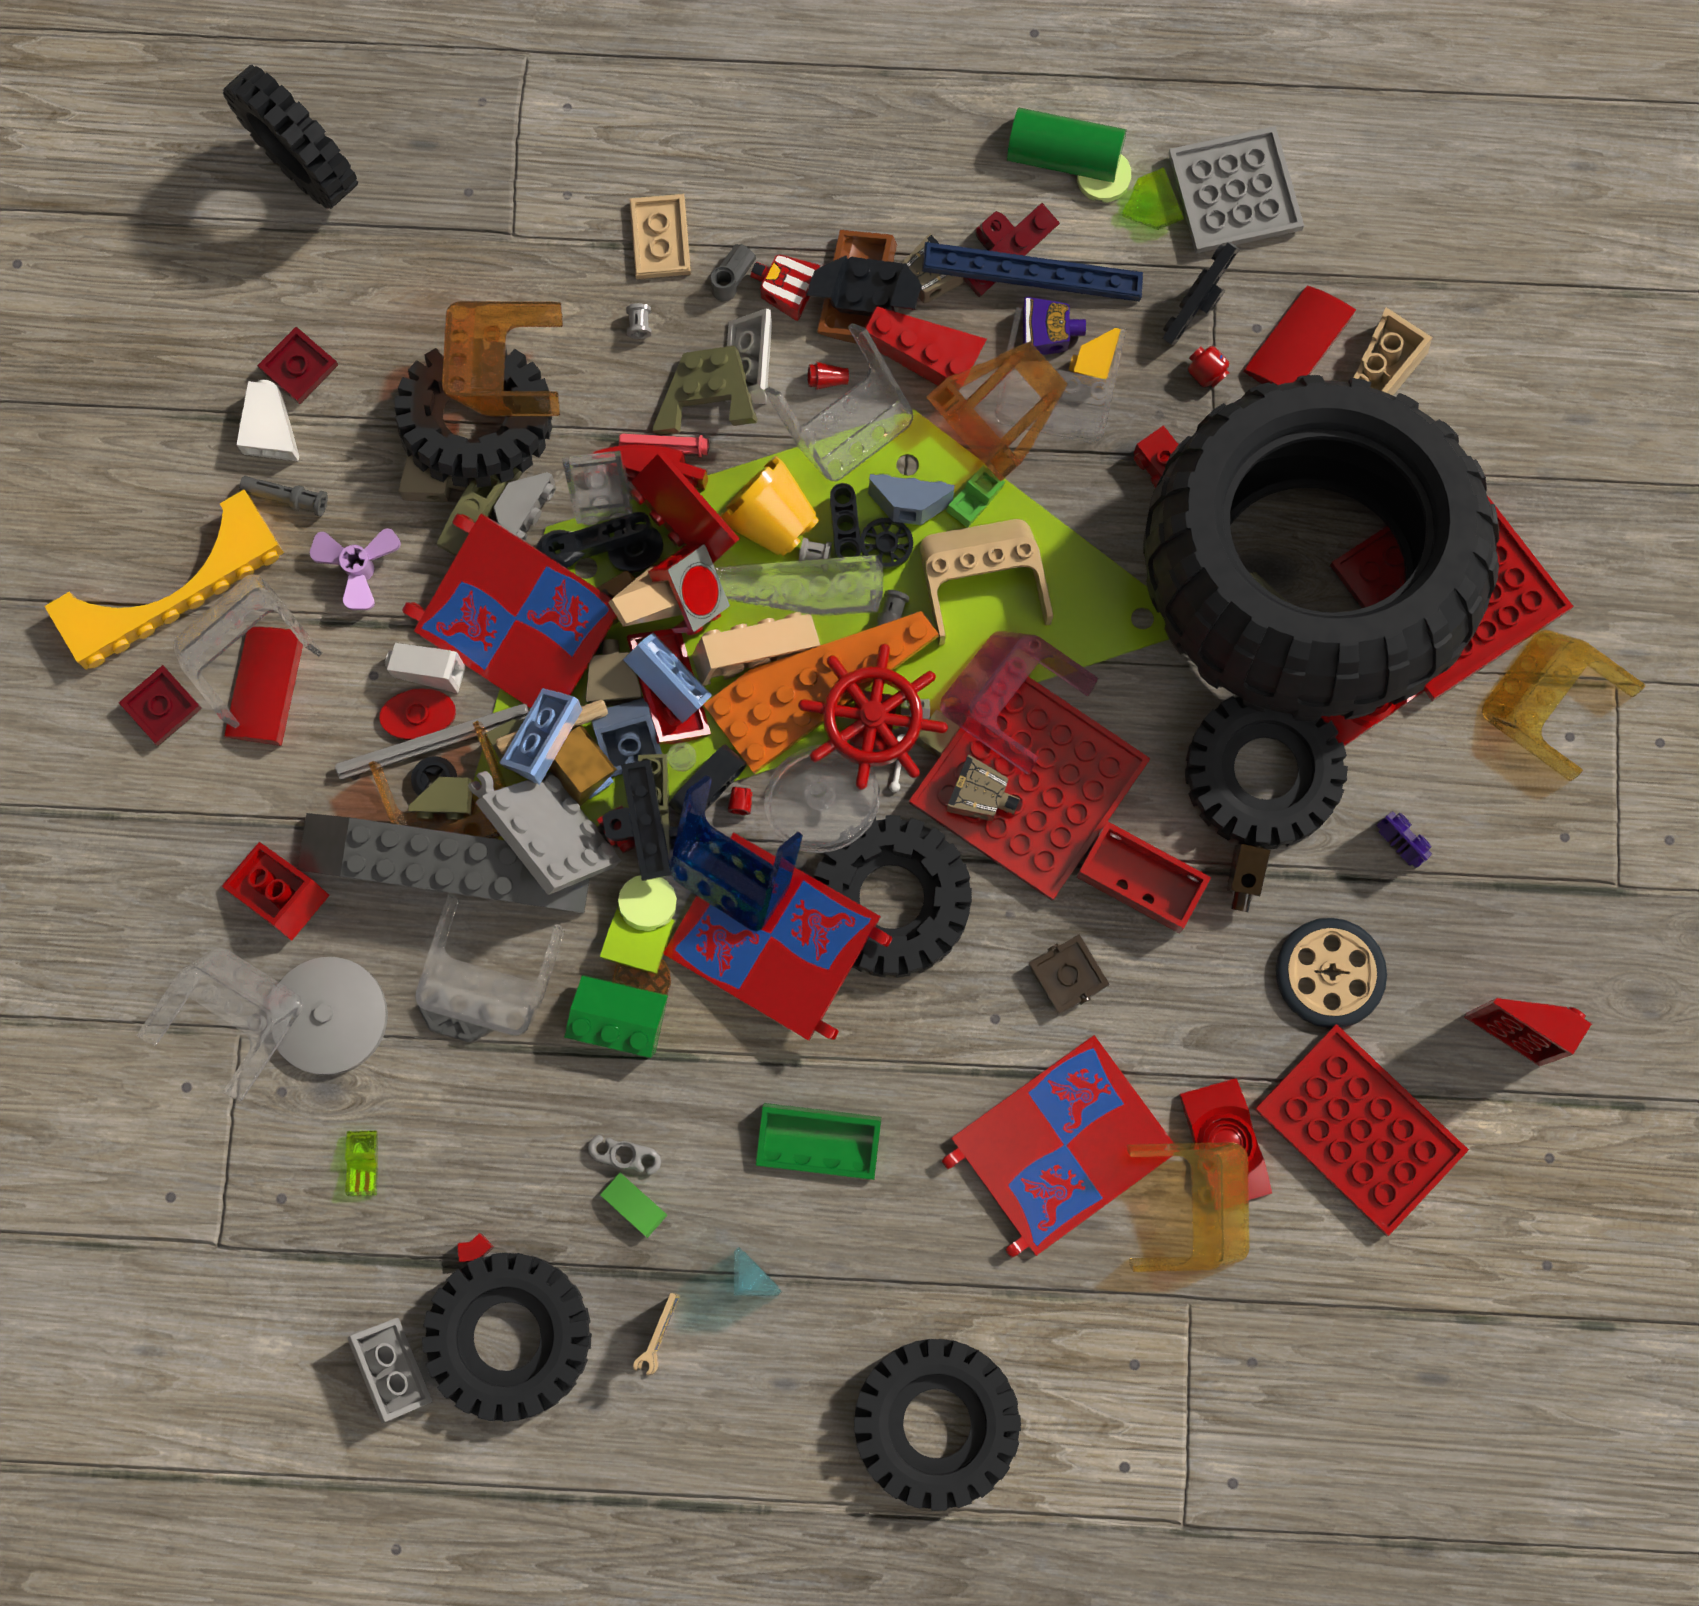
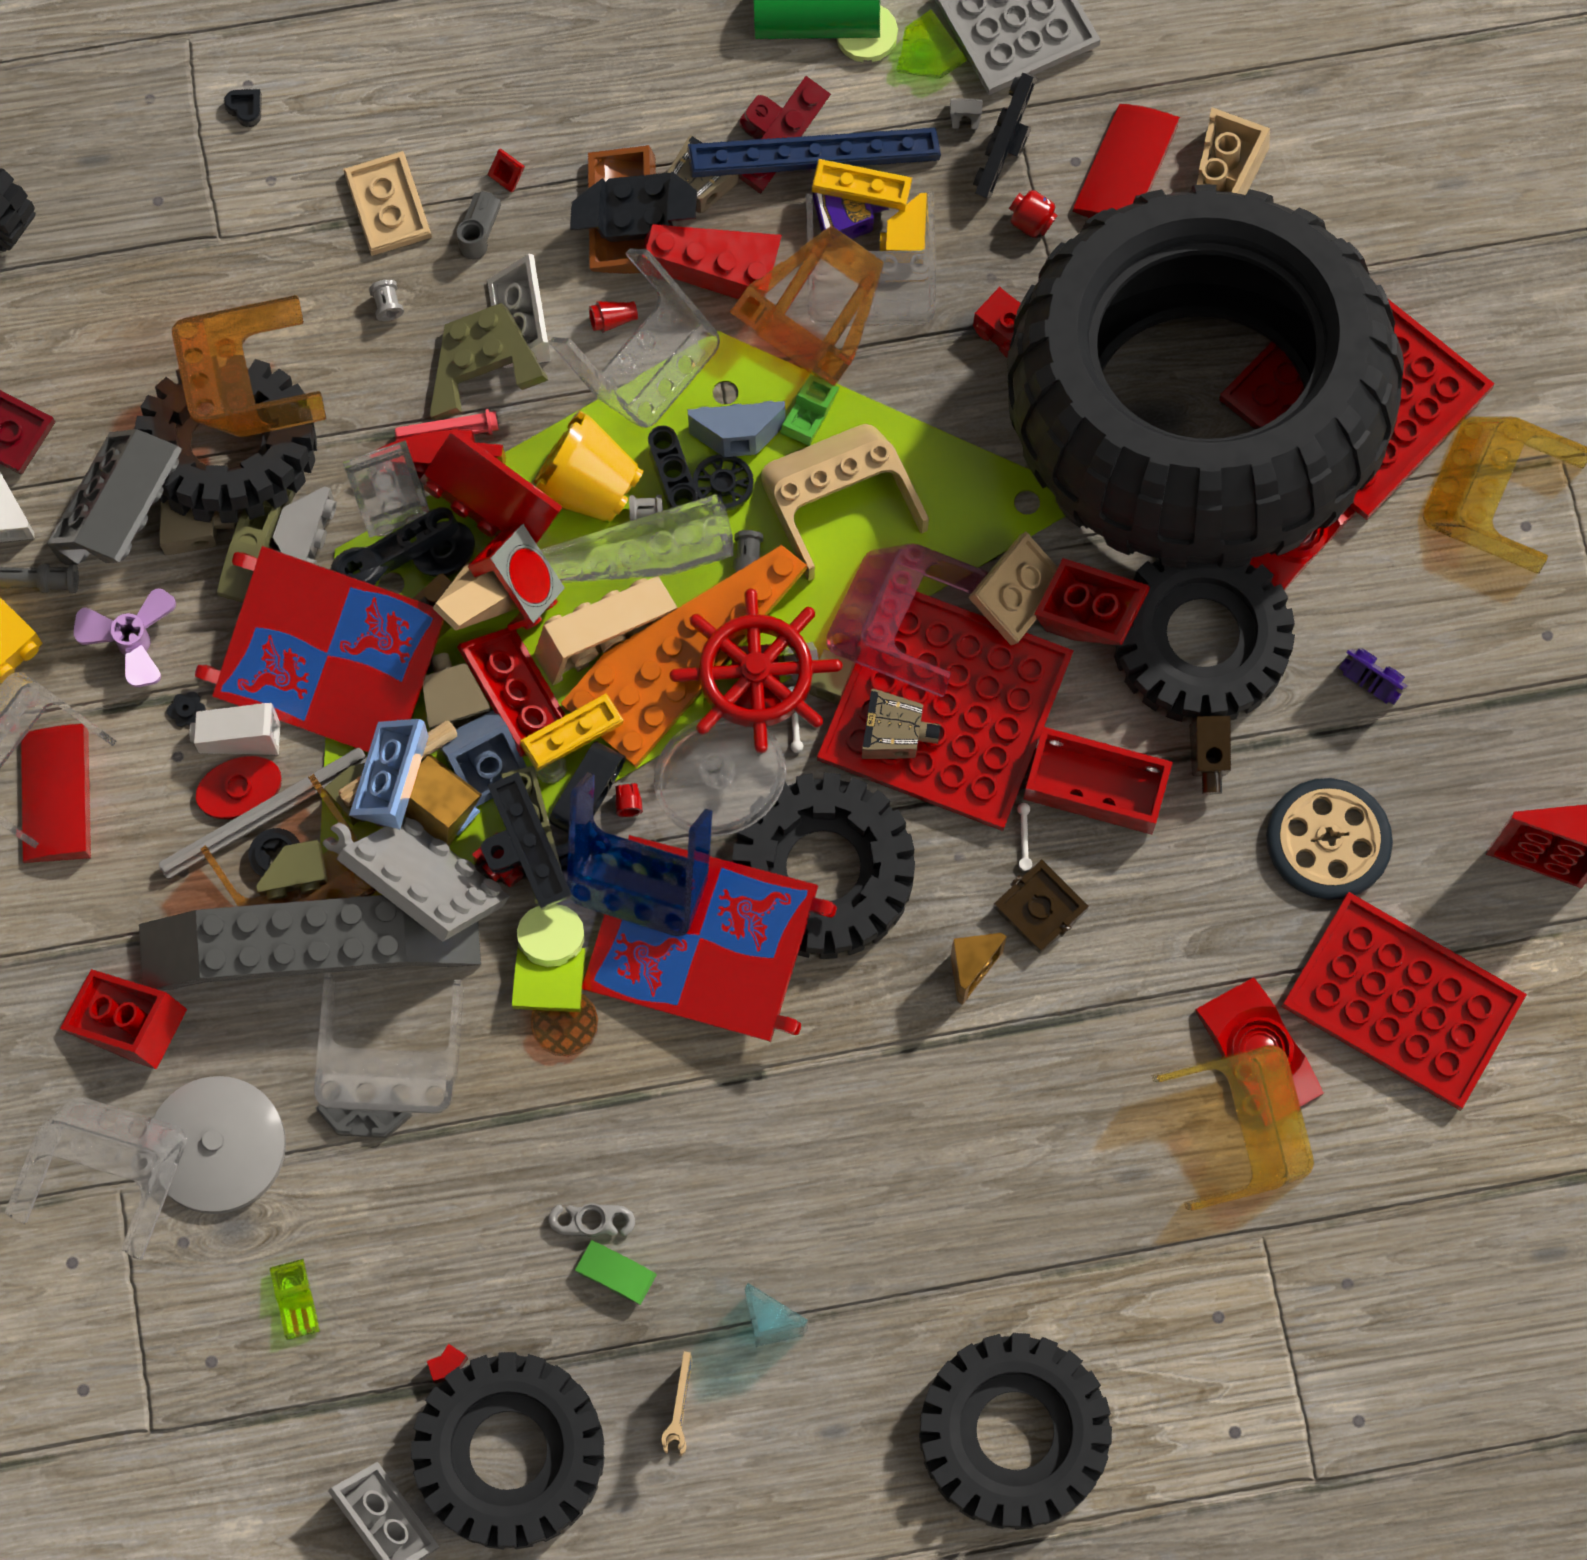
camera: 15 degrees left, 5 degrees down
(366, 444) = (114, 497): none -> dark grey slope
(381, 636) = (177, 712): none -> black plant
(560, 125) = (245, 105): none -> black tile
(616, 1016) = (546, 1067): green slope -> none
(667, 677) = (514, 681): light blue slope -> none
(705, 733) = (571, 732): none -> yellow tile
(766, 230) = (506, 170): none -> red slope
(785, 283) = (542, 224): torso -> none
(818, 1141) = (807, 1153): green slope -> none
(998, 1009) = (973, 959): none -> pearl gold slope
(1061, 1146) = (1079, 1096): flag -> none
(1065, 933) = (1025, 863): none -> white hinge
(1066, 309) = (862, 184): none -> yellow tile
(1115, 694) = (1015, 588): none -> tan tile
(1172, 260) = (965, 107): none -> light grey tile
(1174, 723) = (1090, 604): none -> red slope

